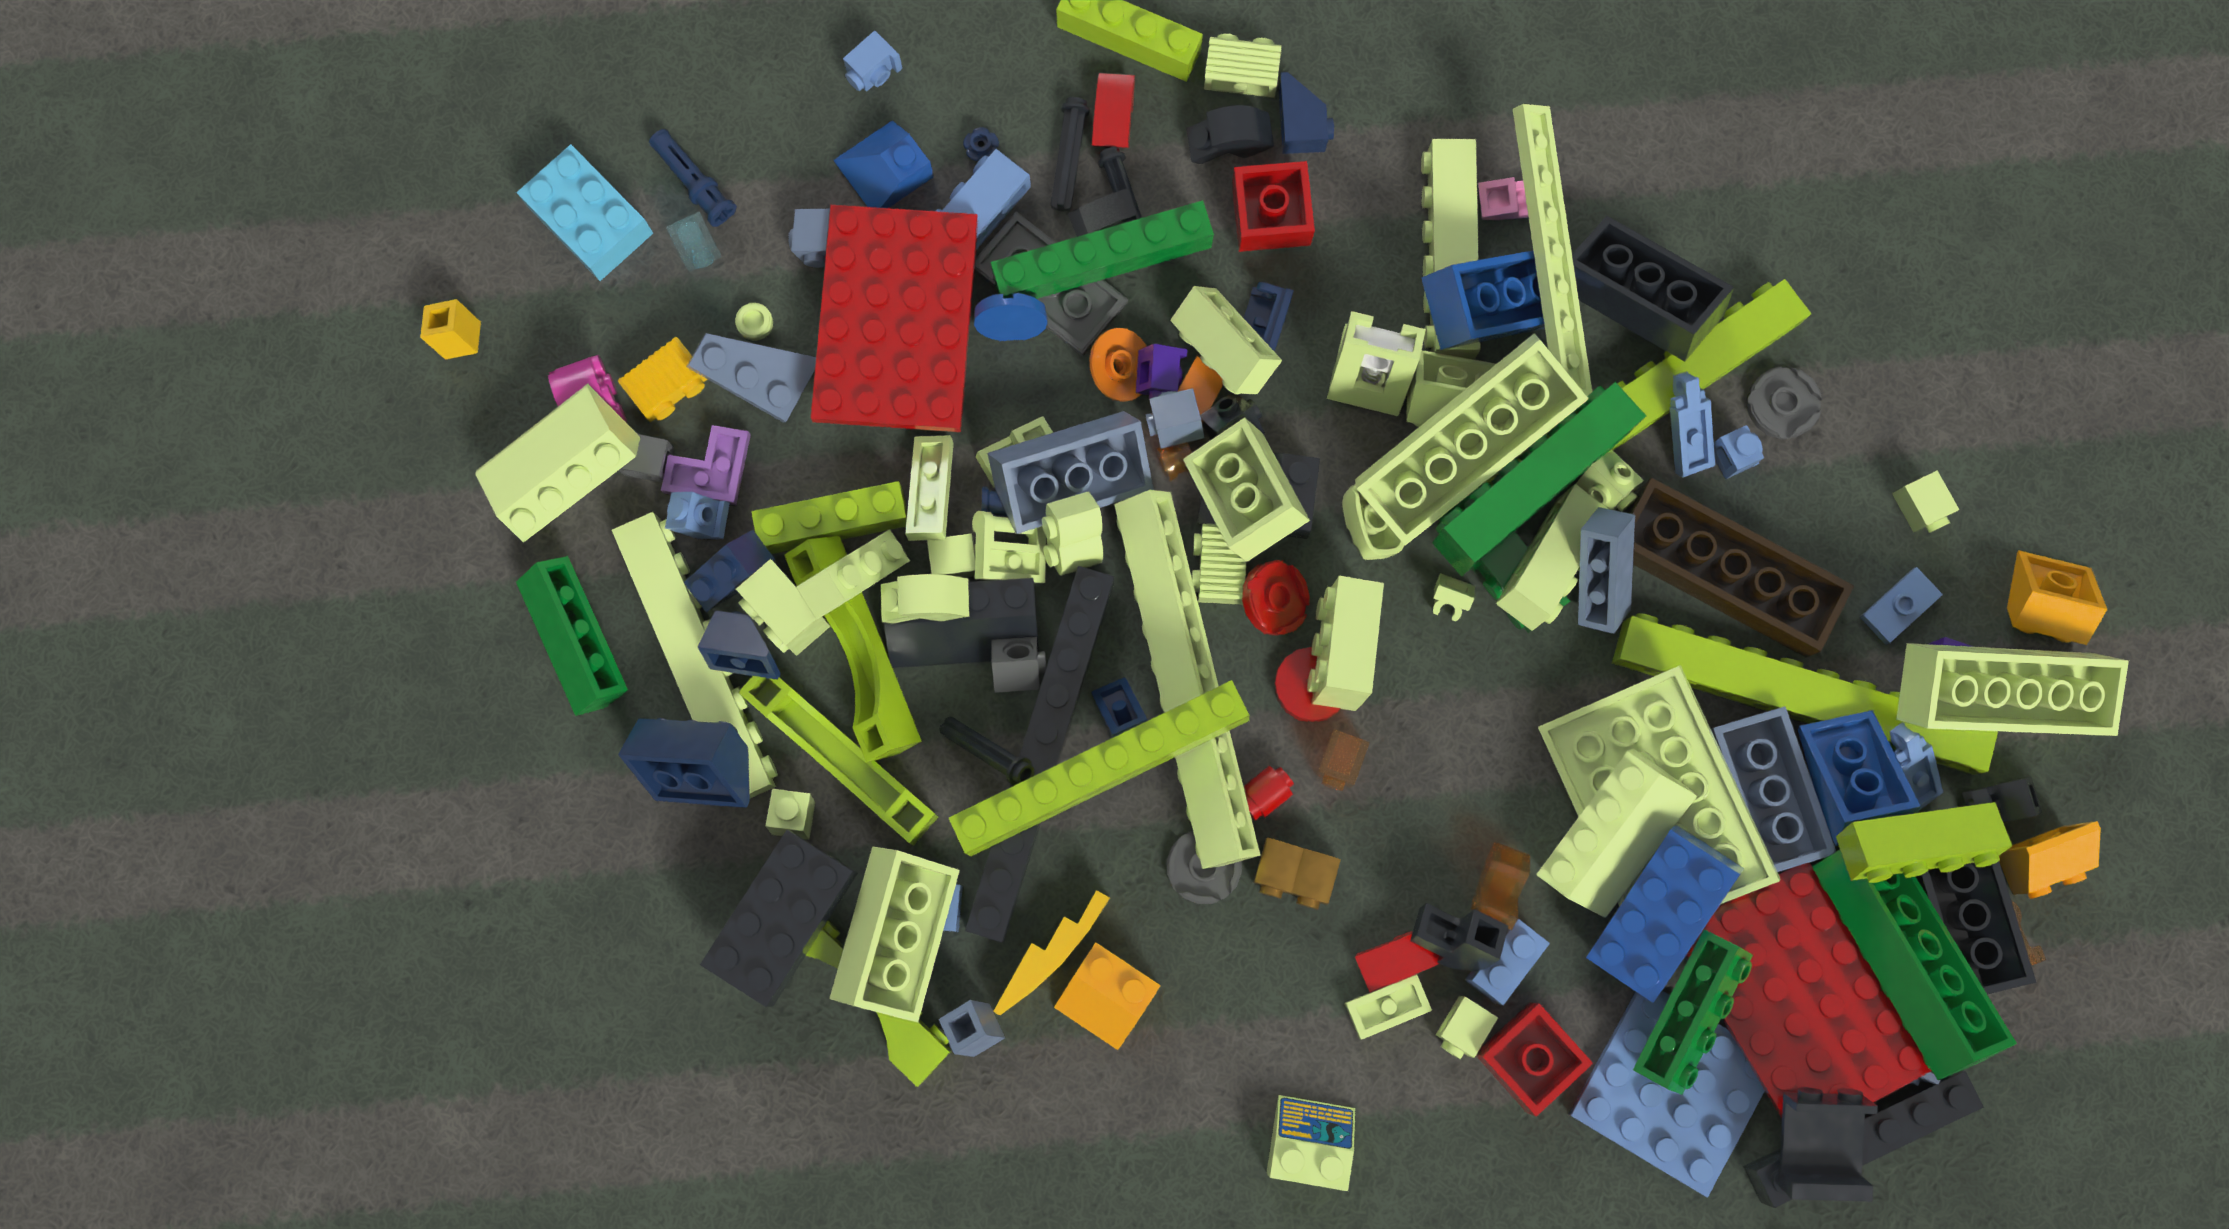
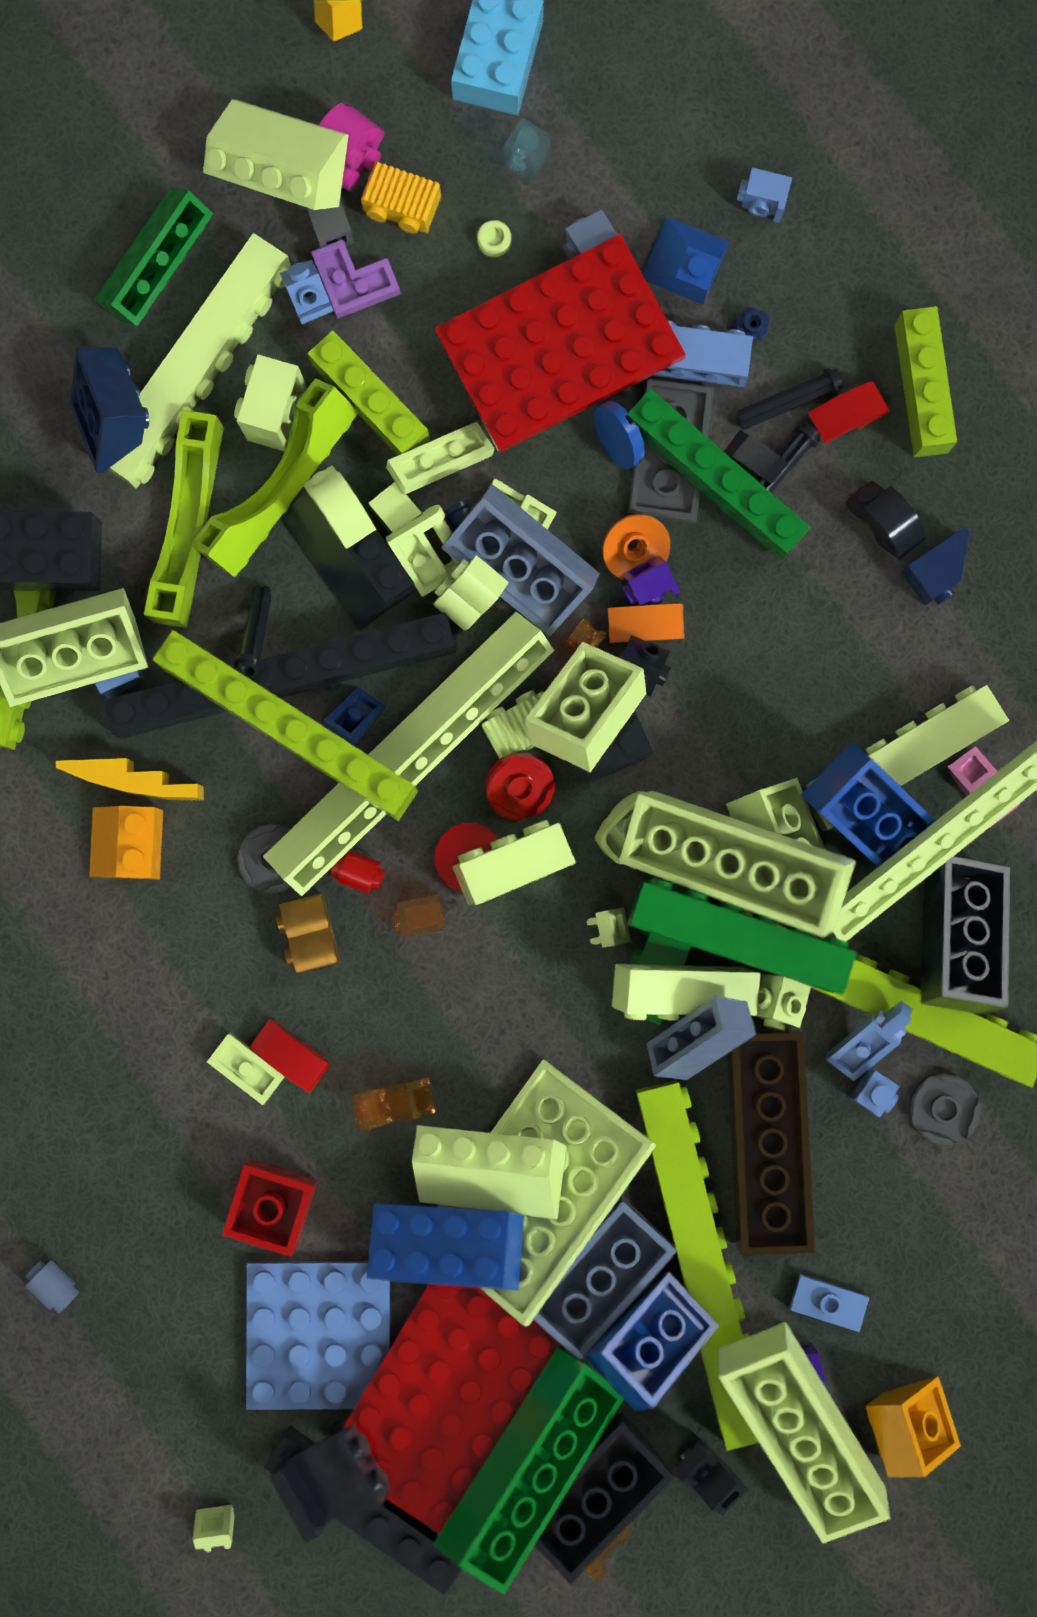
camera: 65 degrees right, 5 degrees up
(701, 189) = (576, 126): dark blue pin -> none
(727, 570) = (275, 341): dark blue brick -> none
(735, 646) = (216, 385): dark blue slope -> none
(754, 372) = (449, 266): sand blue wing -> none
(790, 812) = (117, 511): yellowish green brick -> none
(852, 574) = (327, 439): yellowish green brick -> none
(971, 1028) = (34, 752): sand blue brick -> none
(1017, 664) = (340, 613): dark grey brick -> none
(1175, 418) = (614, 615): sand blue brick -> none
(1225, 341) = (705, 617): yellowish green brick -> none
(1242, 66) = (954, 493): yellowish green brick -> none
(1268, 311) = (743, 642): dark blue hinge -> none
(1273, 206) = (846, 588): red brick -> none
(1312, 1143) = (103, 1070): slope -> none
(1375, 365) = (759, 749): yellowish green brick -> none
(1461, 943) = (326, 1096): black brick -> none
(1465, 1028) = (265, 1140): yellowish green brick -> none
(1519, 954) = (335, 1143): medium blue brick -> none
(1693, 1013) = (377, 1315): green brick -> none
(1917, 763) = (692, 1388): medium blue hinge -> none
(1923, 842) = (625, 1426): lime brick -> none
(1926, 503) = (929, 1275): yellowish green brick -> none
(2051, 858) = (687, 1542): light orange slope -> none

